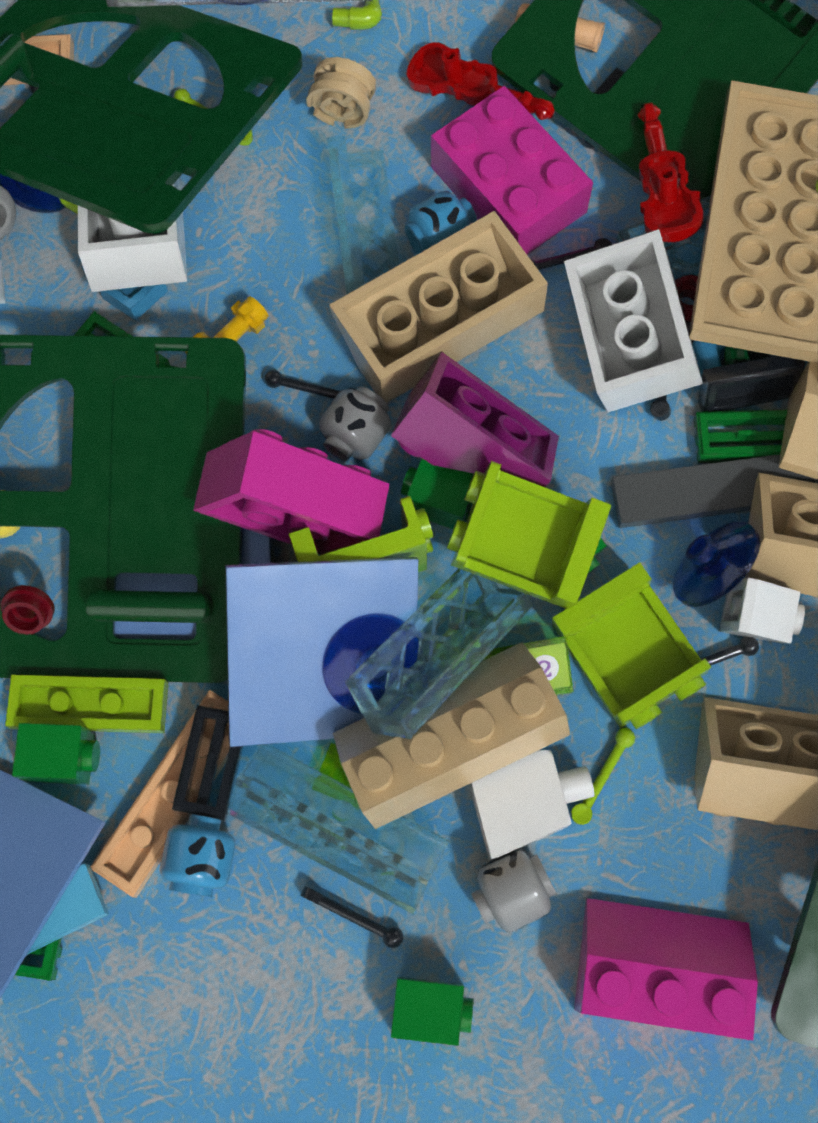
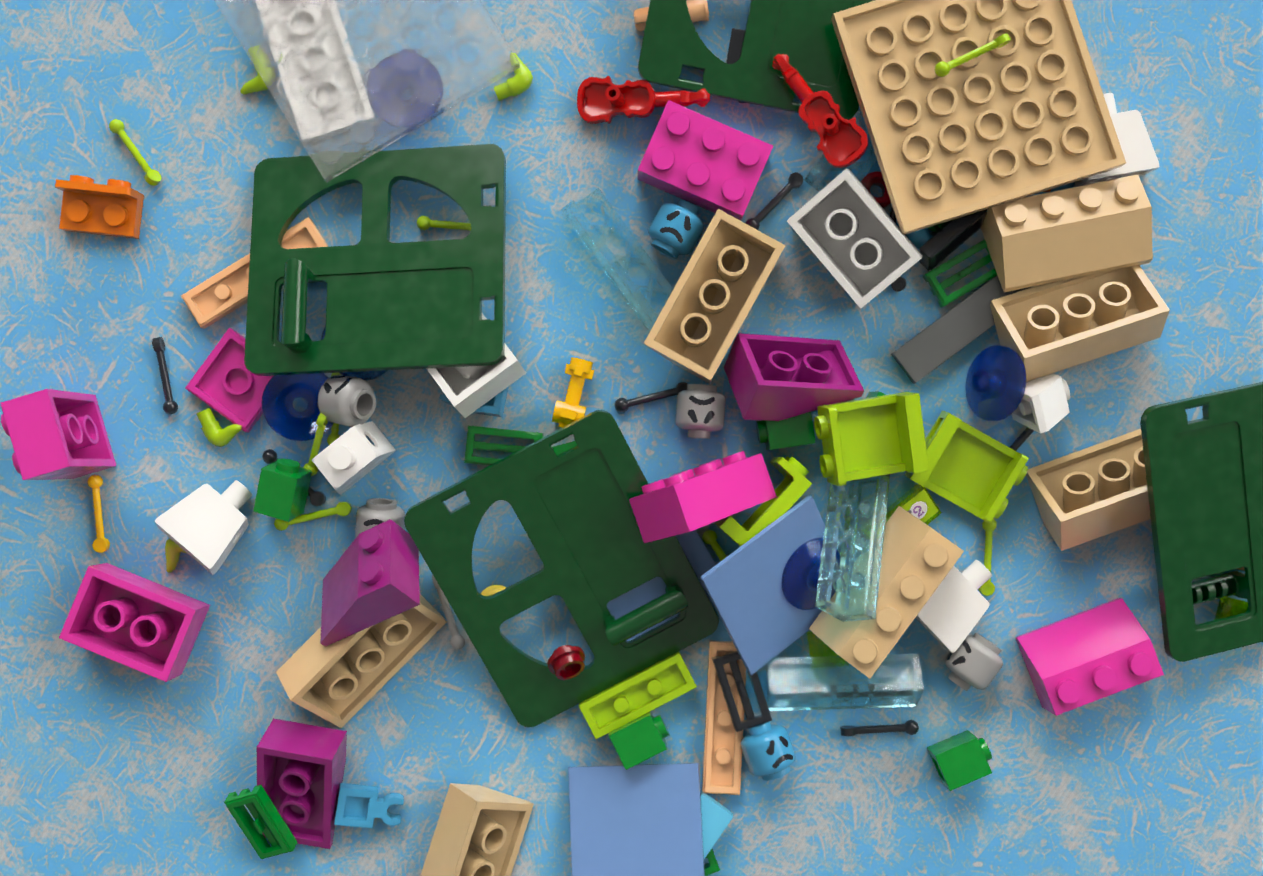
camera: 35 degrees left, 15 degrees up
(341, 92) = (546, 162): tan wheel -> none

